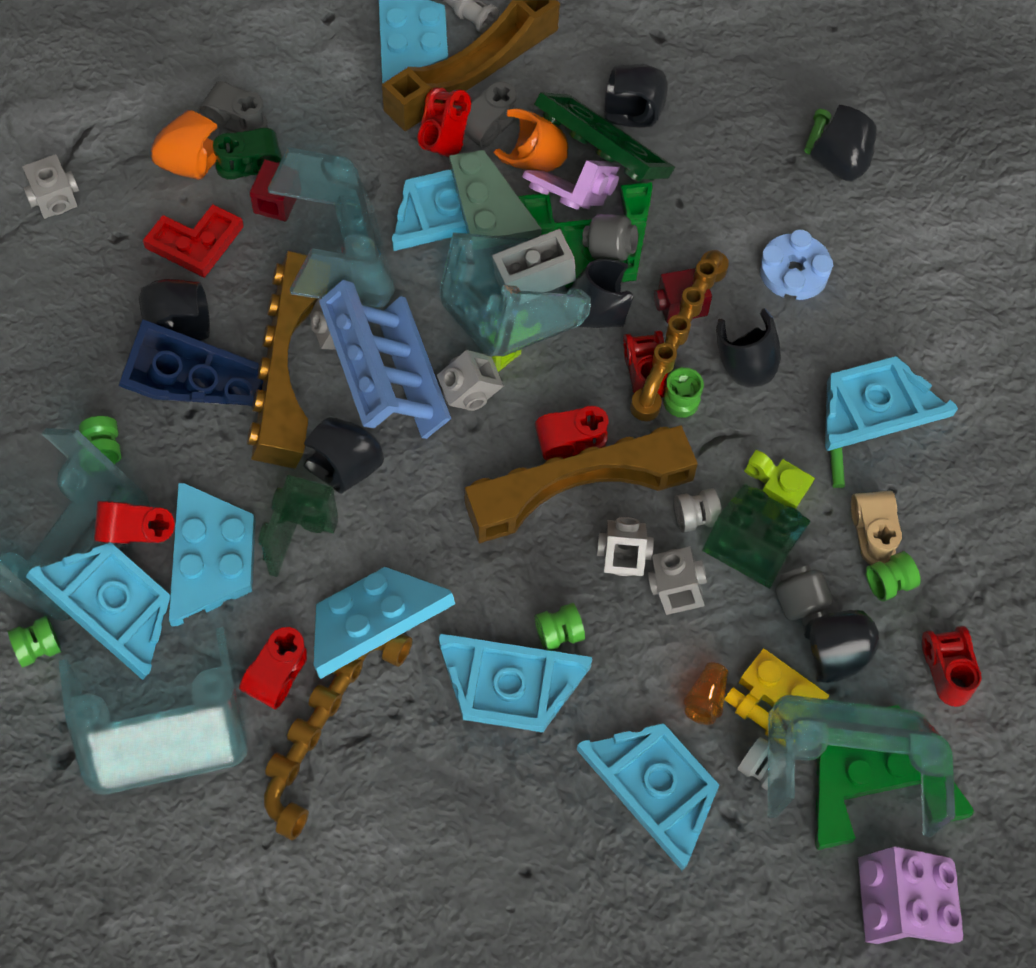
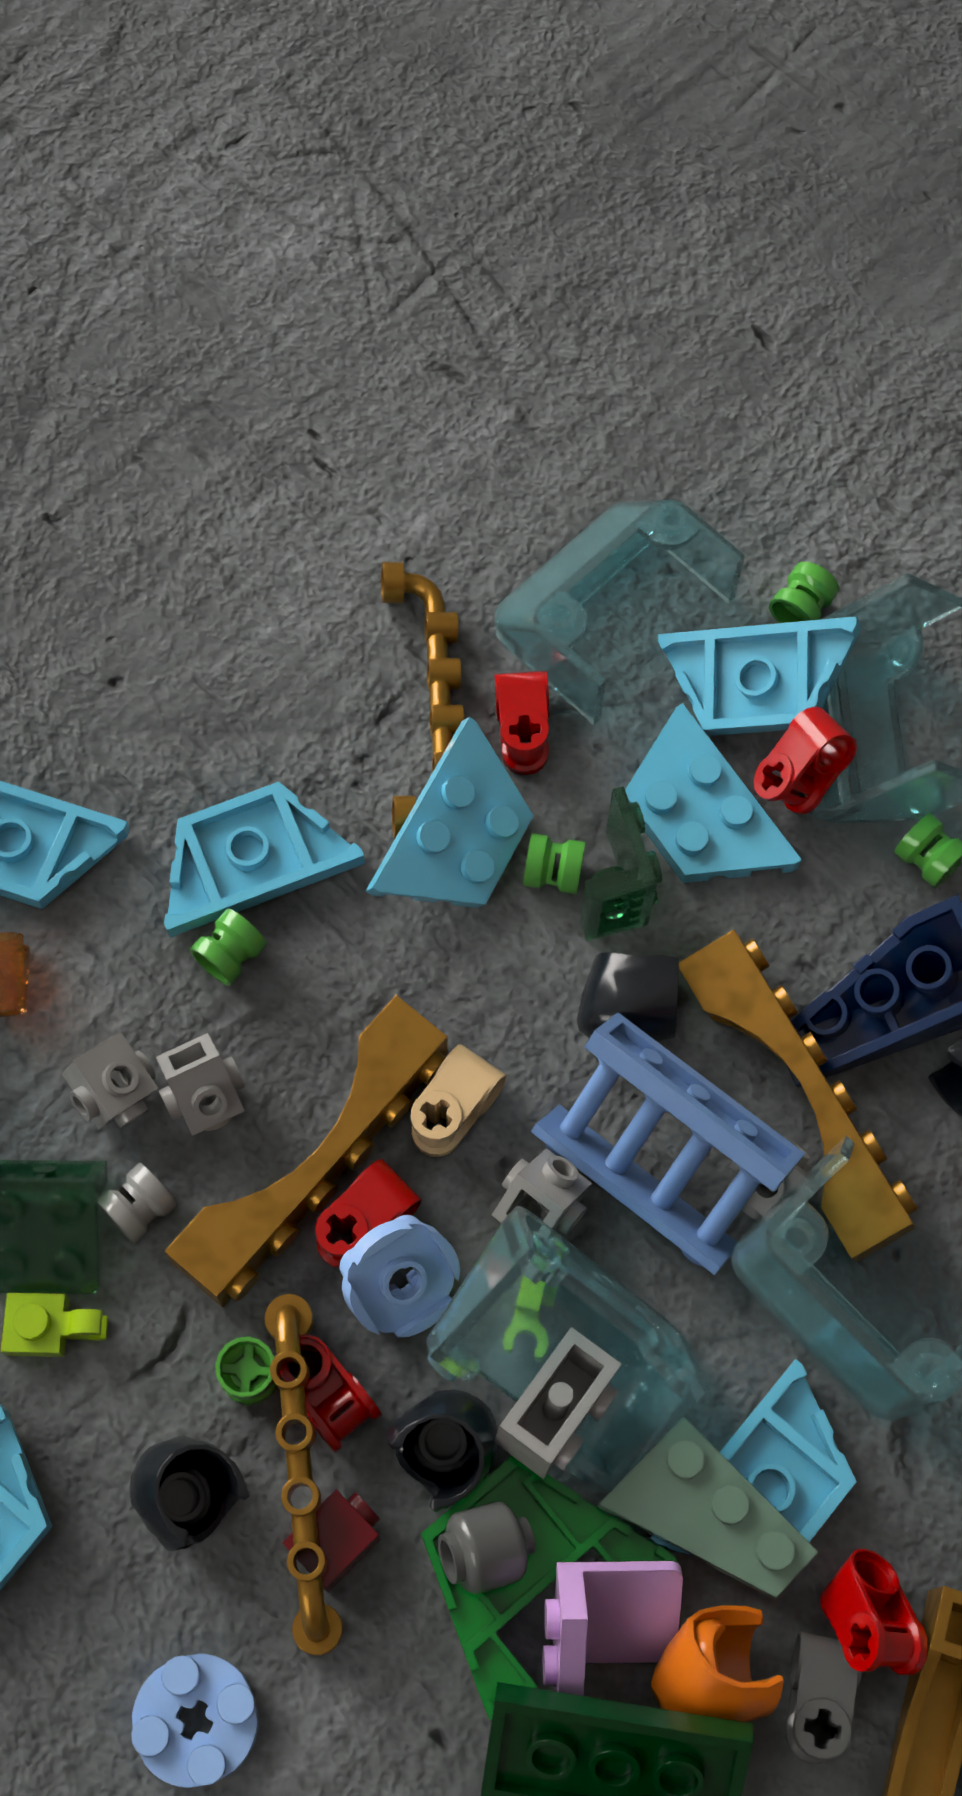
camera: 150 degrees right, 5 degrees up
(326, 563) = (542, 860): none -> bright green wheel
(481, 461) = (459, 1094): none -> tan piece
(573, 384) = (378, 1256): none -> light blue plate

